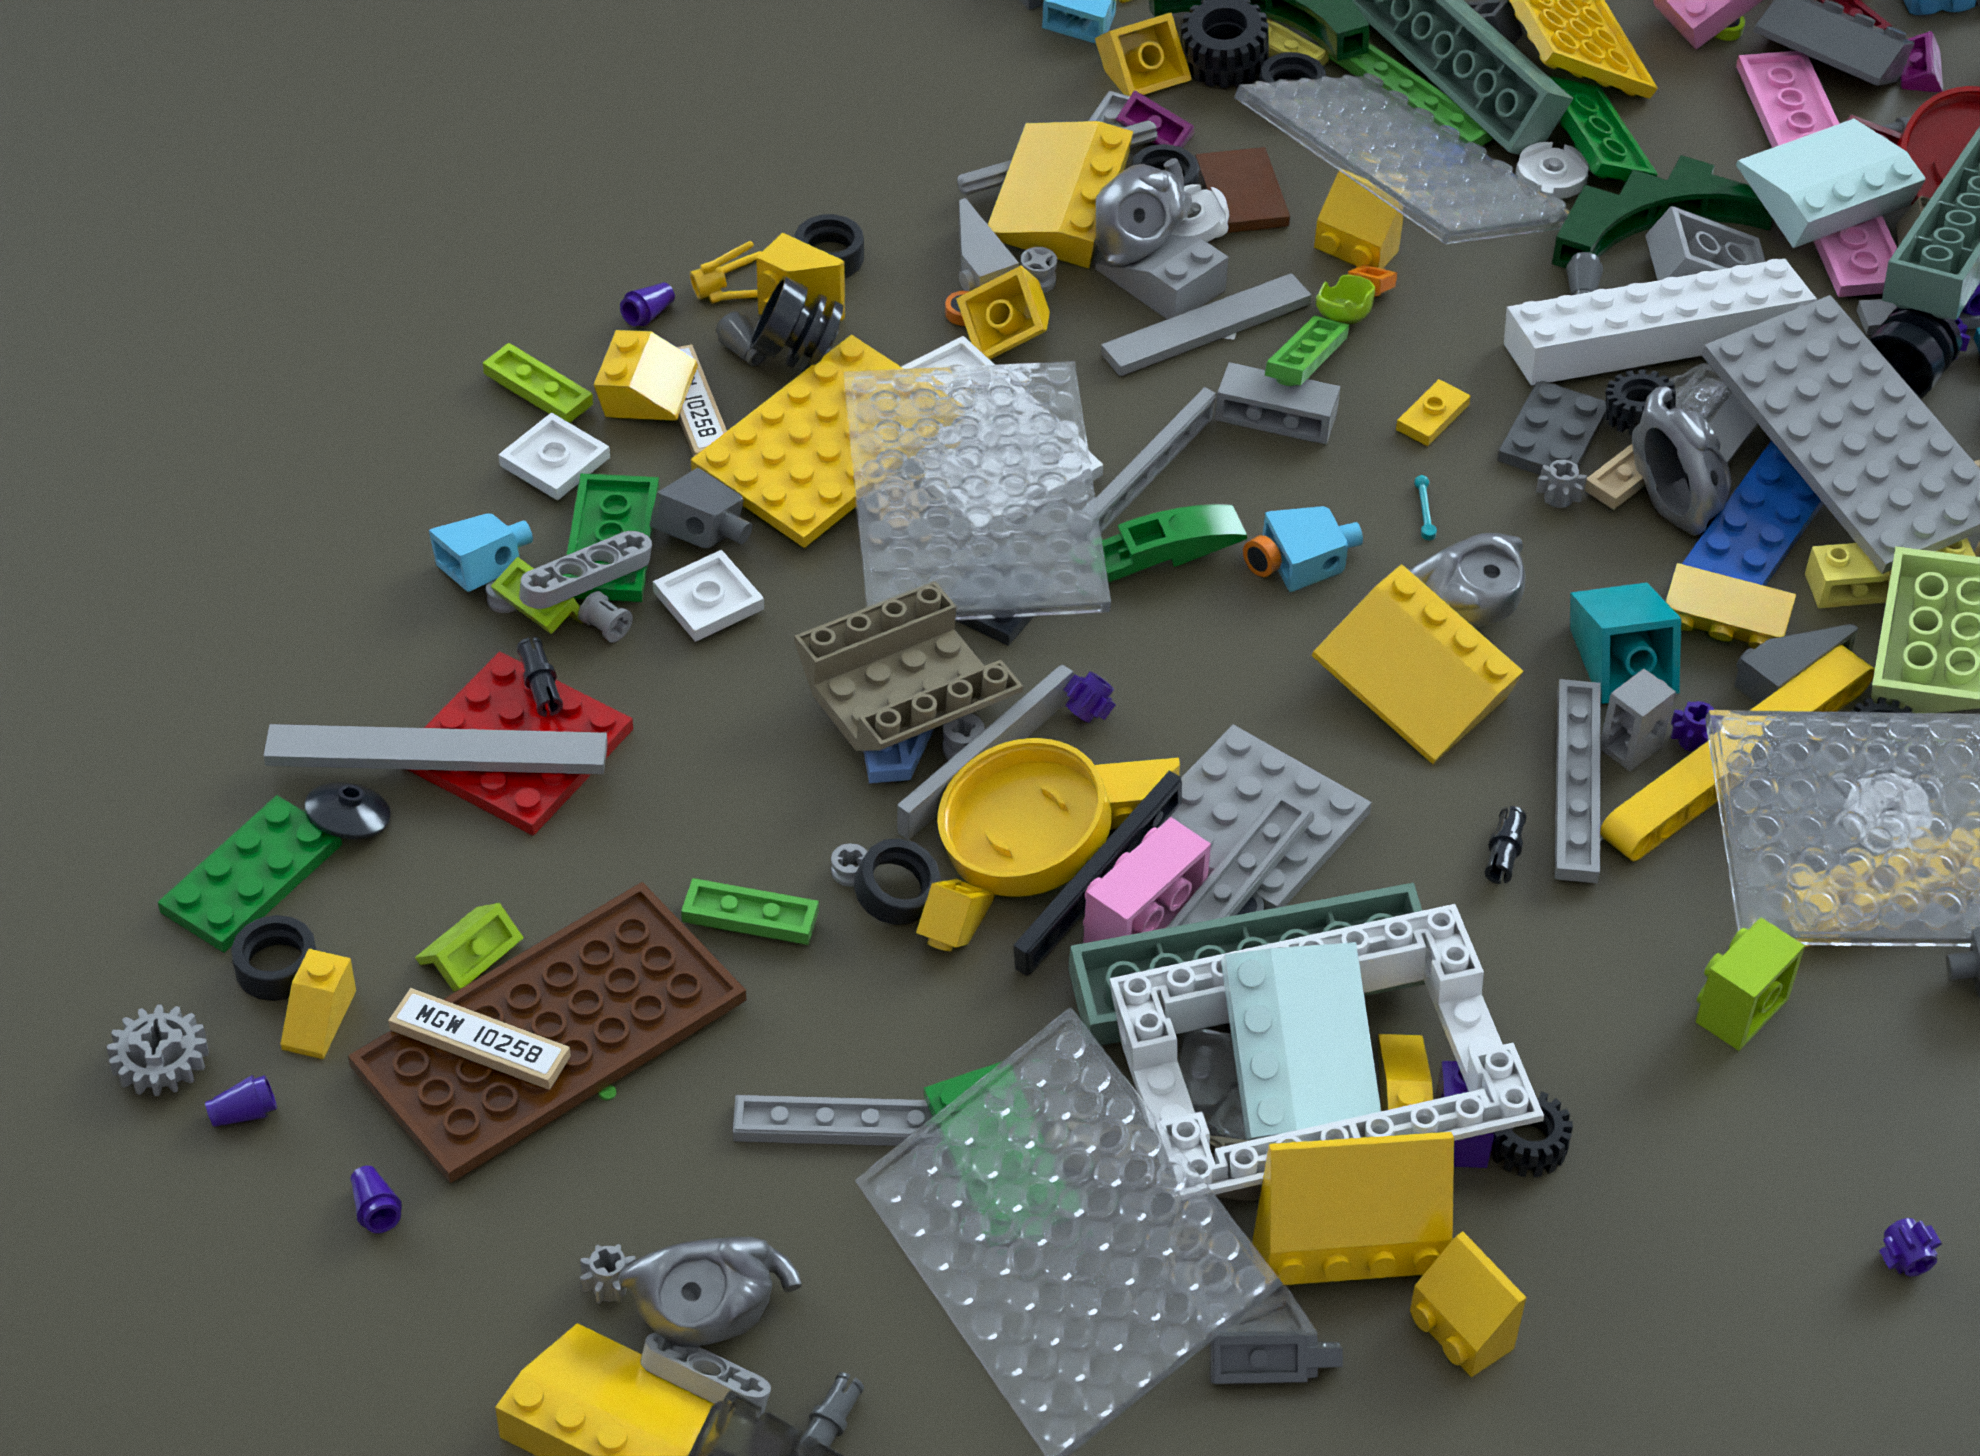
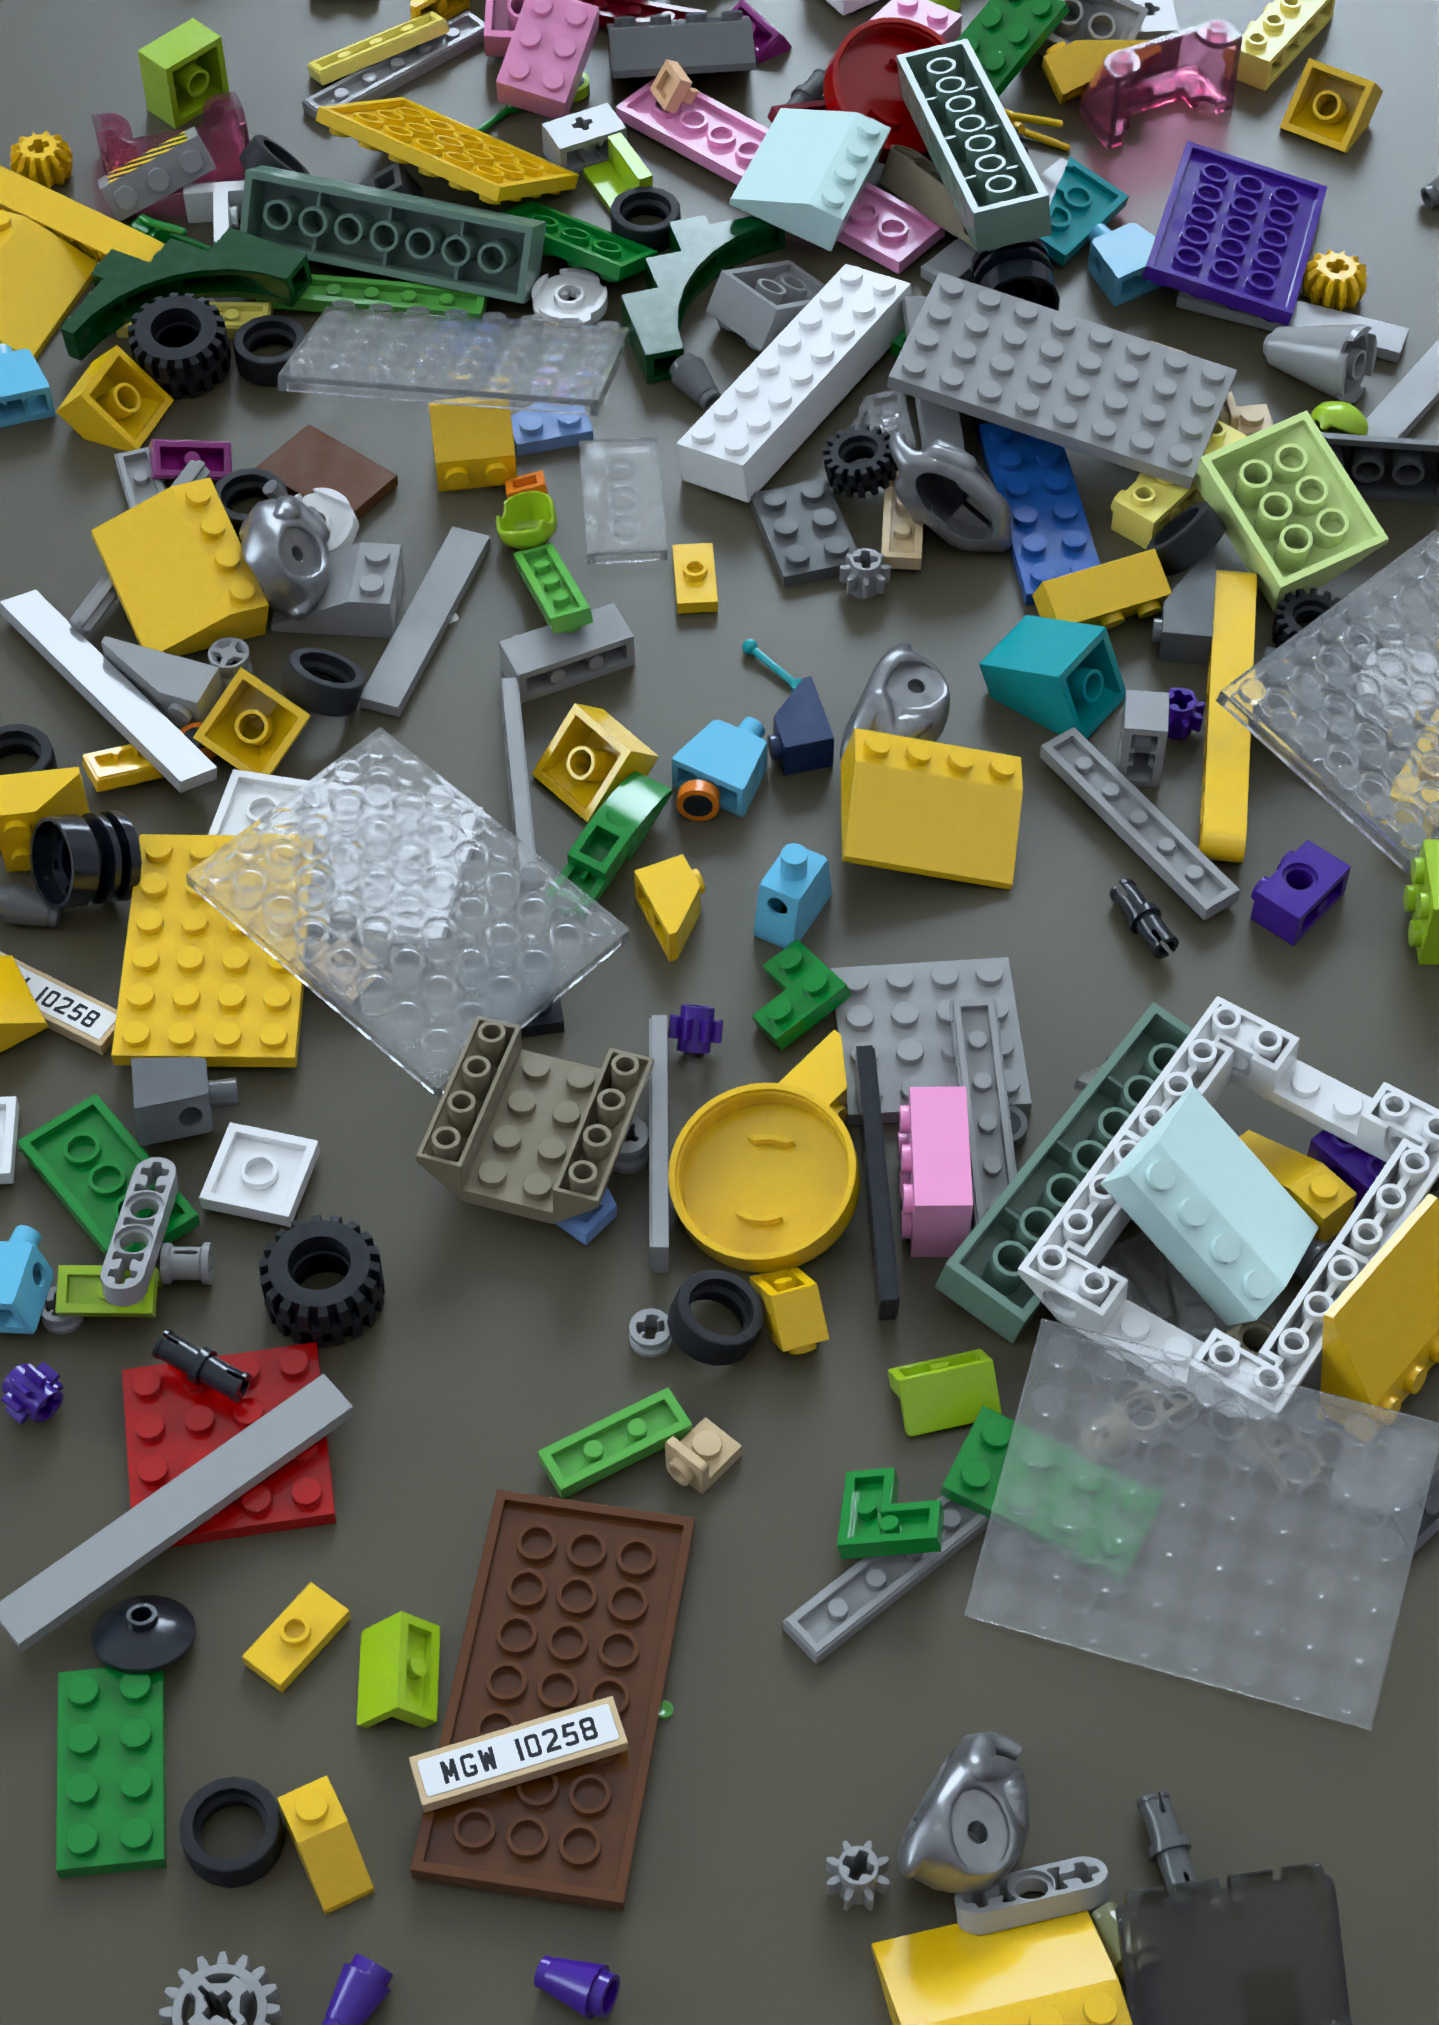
camera: 40 degrees left, 5 degrees up
(430, 625) = (32, 1392): none -> dark purple gear
(434, 880) = (296, 1637): none -> yellow plate
(648, 687) = (317, 1249): none -> black tyre
(797, 961) = (701, 1456): none -> tan bracket
(864, 1079) = (878, 1525): none -> green plate
(902, 292) = (118, 768): none -> yellow plate
(936, 238) = (108, 691): none -> tile
(991, 1033) = (945, 1391): none -> lime panel
(1074, 329) = (322, 682): none -> black tyre
(1167, 608) = (670, 901): none -> yellow slope
(1198, 727) = (806, 998): none -> green plate
(1219, 473) = (591, 759): none -> yellow slope
(1253, 655) = (802, 884): none -> medium azure torso
(1387, 550) = (802, 732): none -> dark blue slope
(1438, 329) = (623, 500): none -> clear tile
(1452, 258) = (548, 431): none -> medium blue wing
(1641, 17) = (497, 117): none -> green hinge
(1648, 906) = (1299, 891): none -> dark purple brick
(1673, 131) = (645, 202): none -> black tyre
(1686, 110) = (619, 173): none -> lime panel
(1688, 66) = (581, 137): none -> light grey brick
(1793, 62) = (673, 87): none -> light nougat tile
(1840, 607) = (1187, 538): none -> black tyre

